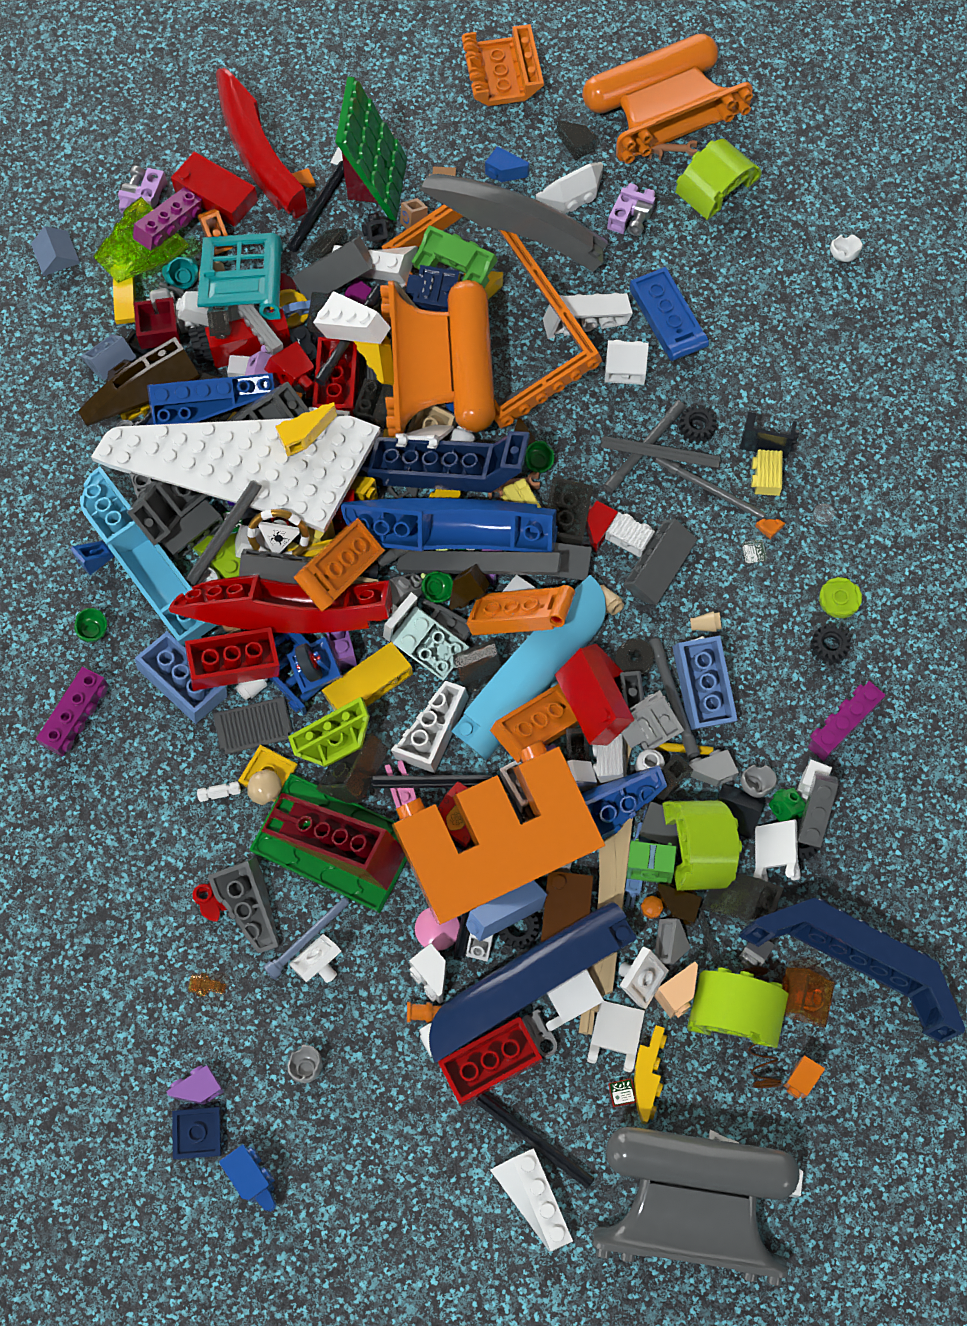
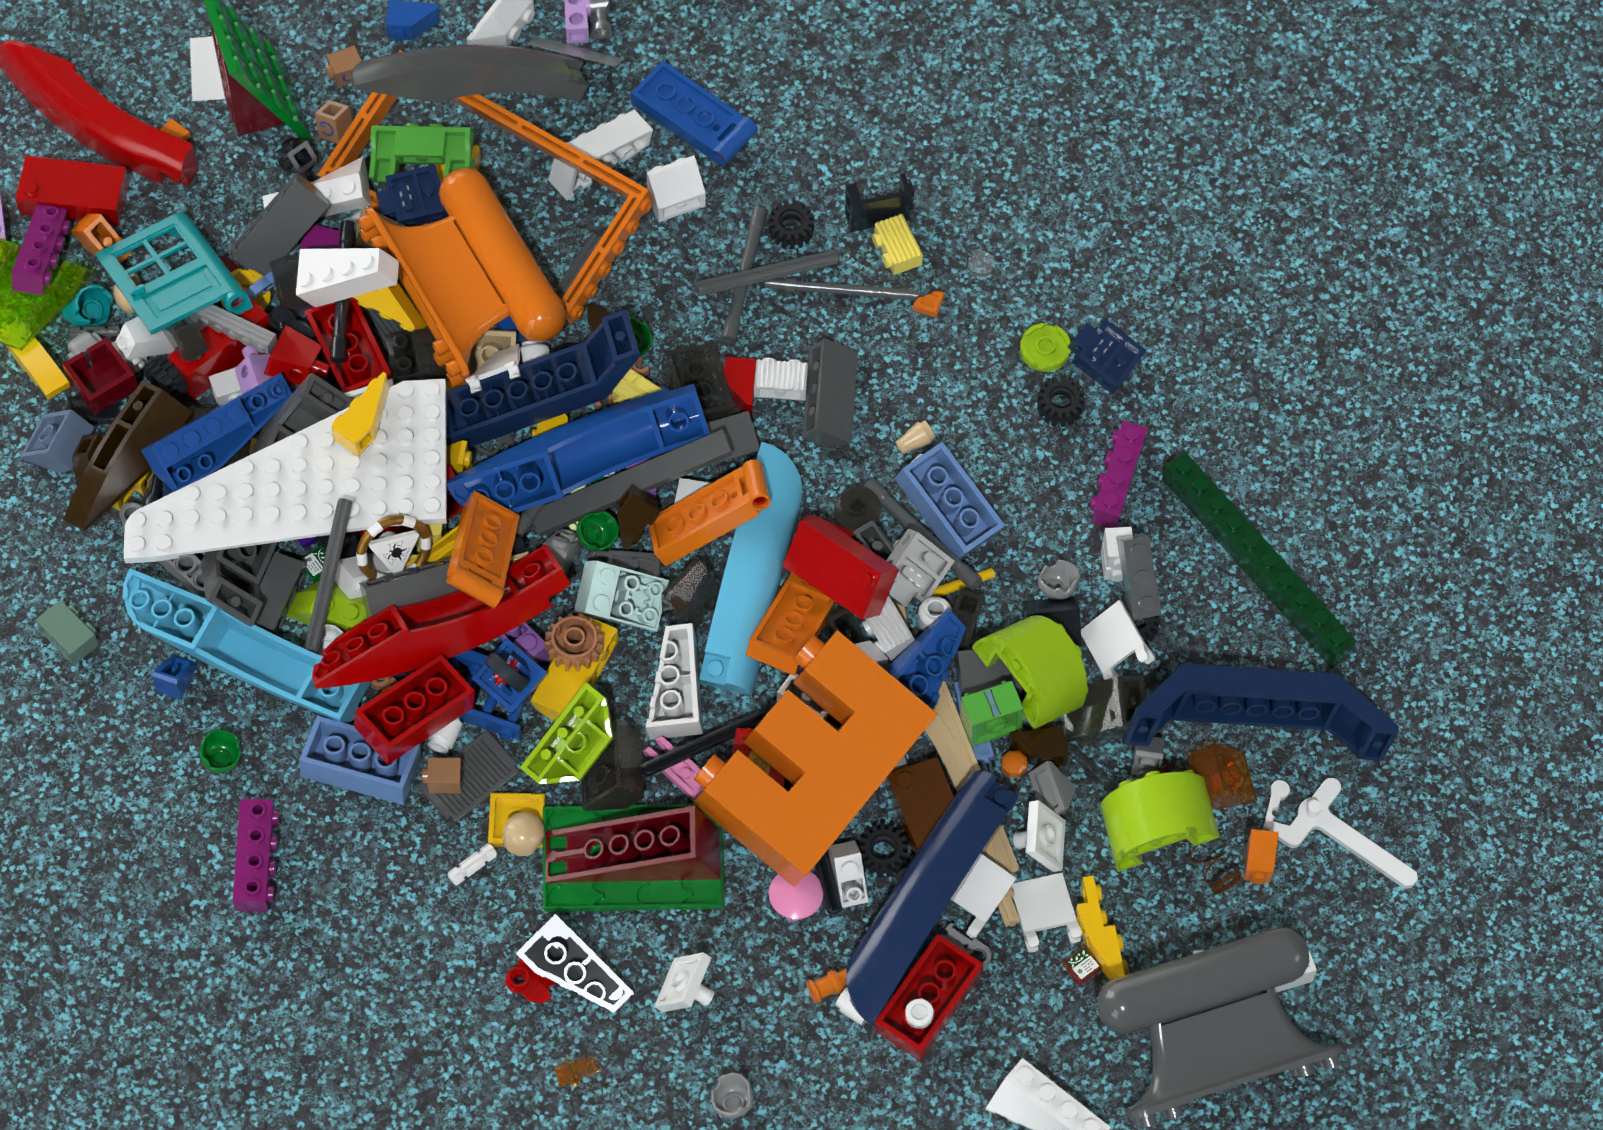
camera: 30 degrees left, 5 degrees down
(38, 492) = (67, 632): none -> sand green brick
(232, 716) = (443, 775): none -> medium nougat brick
(275, 967) = (641, 1018): sand blue piece -> none
(316, 208) = (208, 163): black axle -> none
(325, 244) = (246, 201): clear smoke slope -> none
(375, 651) = (577, 654): none -> nougat gear
(398, 615) = (574, 577): white tile -> none
(431, 970) = (817, 938): white slope -> none
(473, 1073) = (919, 1013): none -> white tile
(505, 910) = (865, 832): medium blue brick -> none
(535, 1140) = (1014, 1055): black axle -> none
(609, 236) = (575, 51): none -> light grey sticker
(613, 602) = (803, 461): tan cone -> none
(678, 992) = (1088, 835): light nougat slope -> none
(715, 769) = (1007, 588): light grey slope -> none
(754, 551) = (926, 338): clear tile -> none
(787, 805) = (1102, 590): green brick -> none
(866, 1061) = (1315, 814): none -> white piece
(882, 623) = (1105, 354): none -> dark blue piece
(922, 838) = (1258, 560): none -> dark green brick

